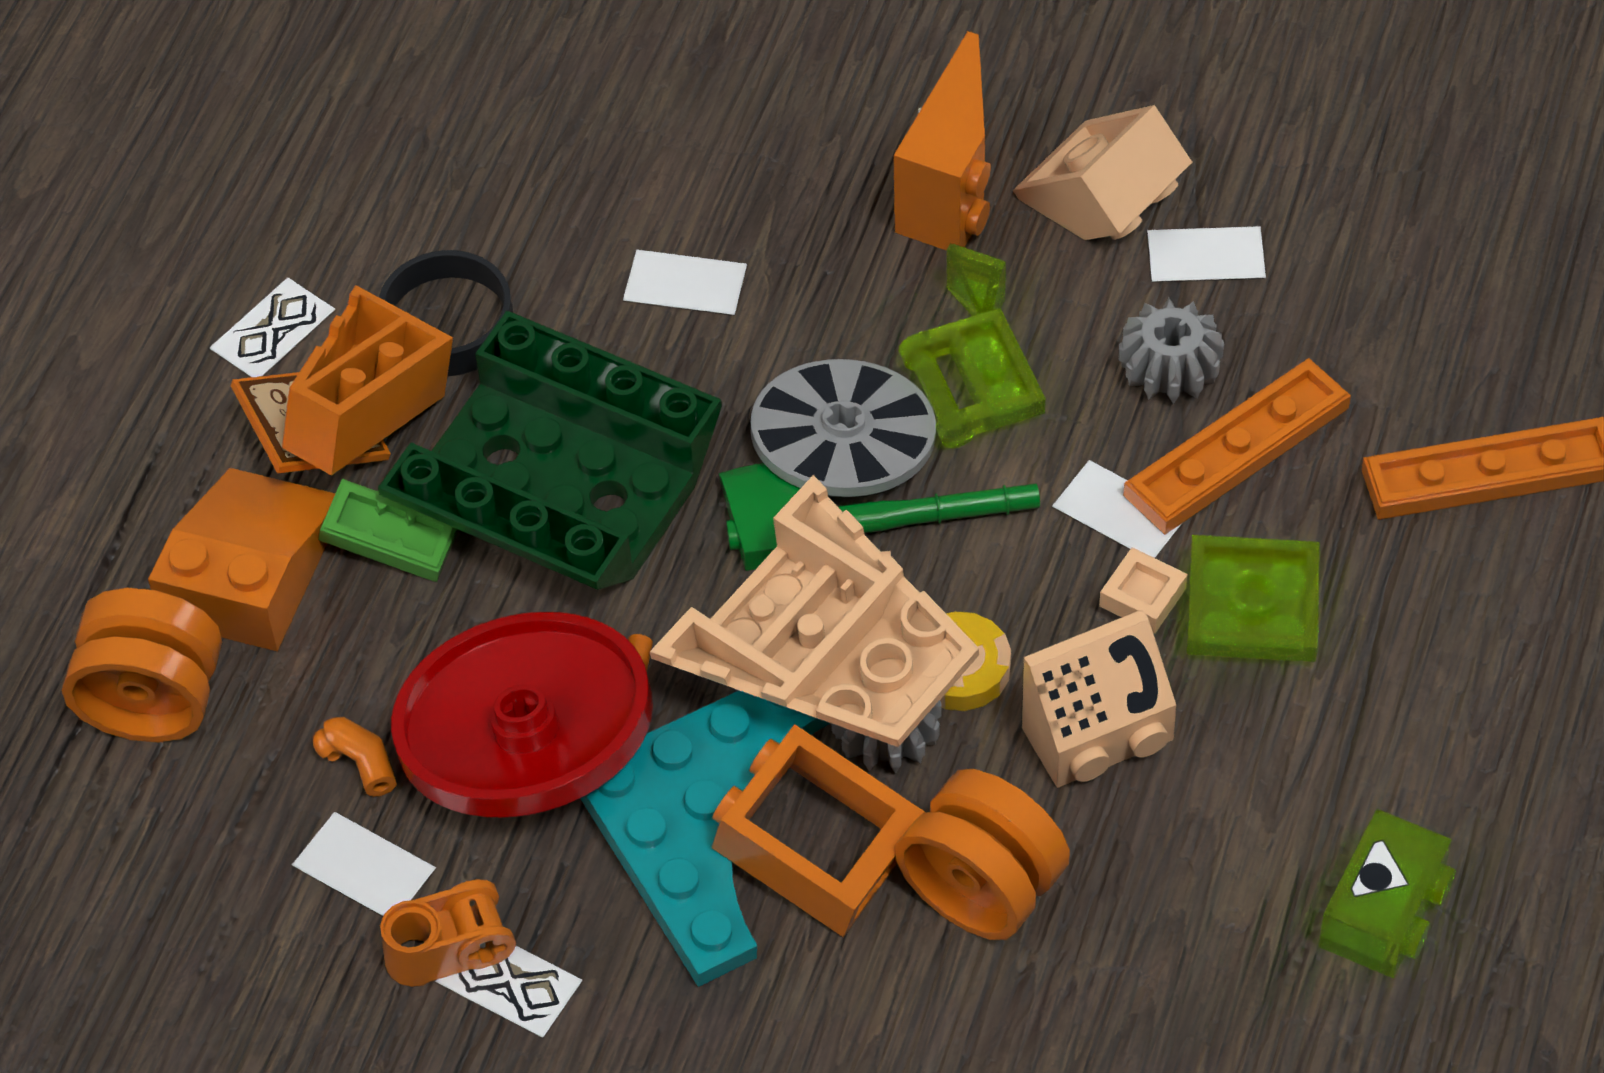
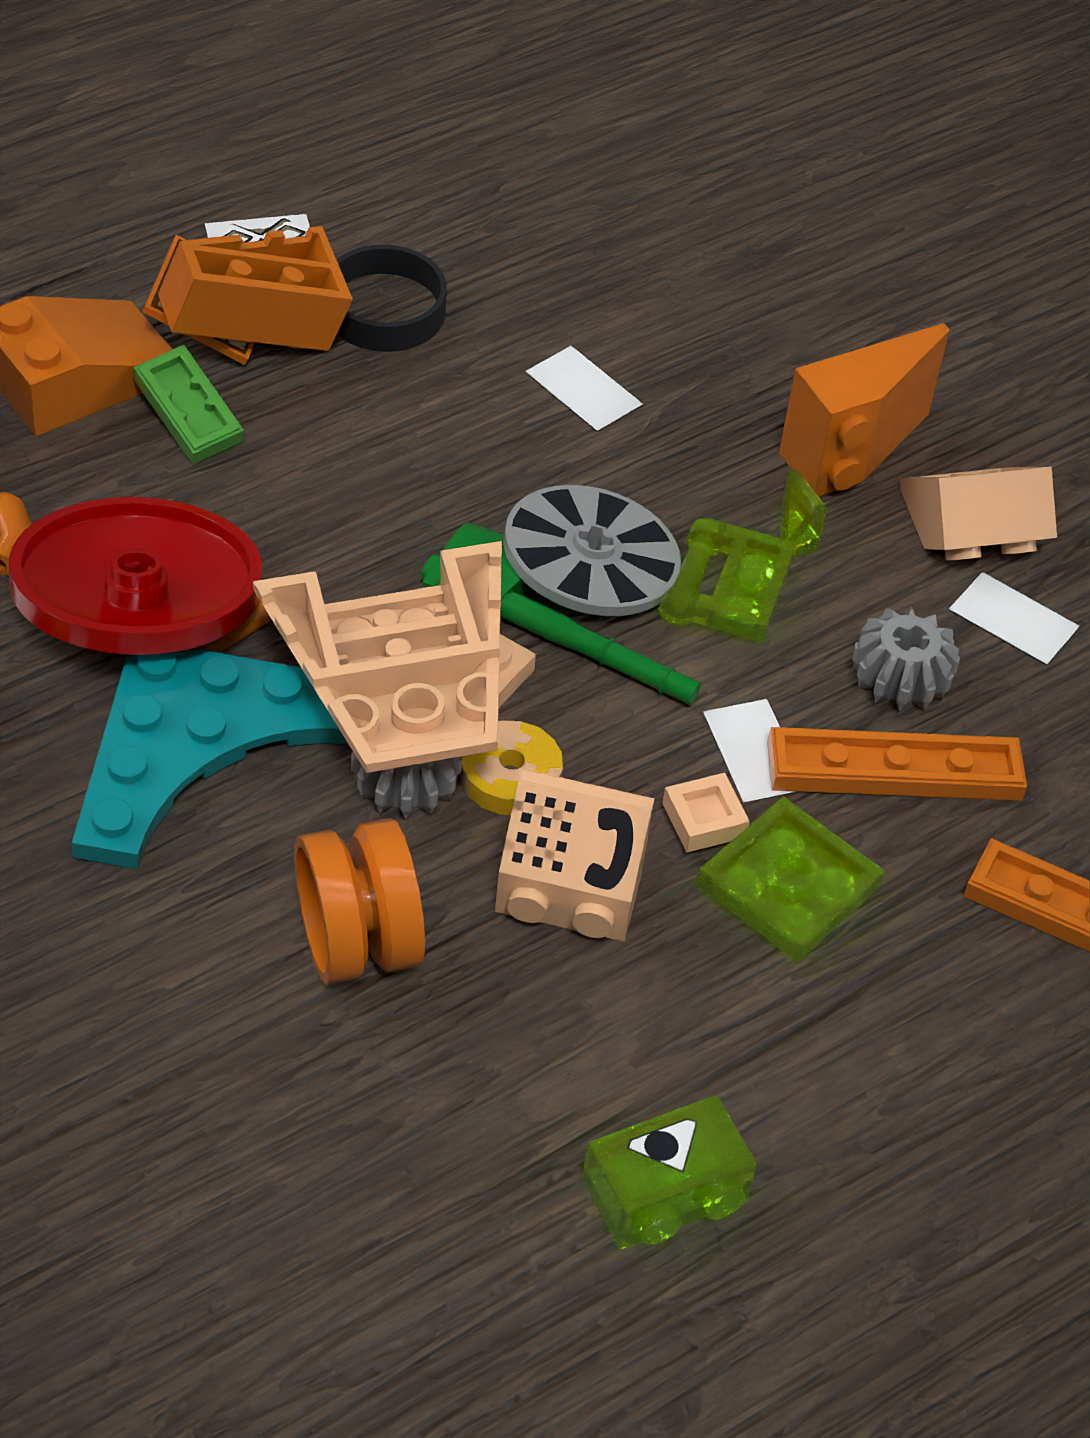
camera: 30 degrees right, 5 degrees down
(580, 433) = (394, 429): dark green slope -> none
(787, 871) = (264, 860): orange window -> none

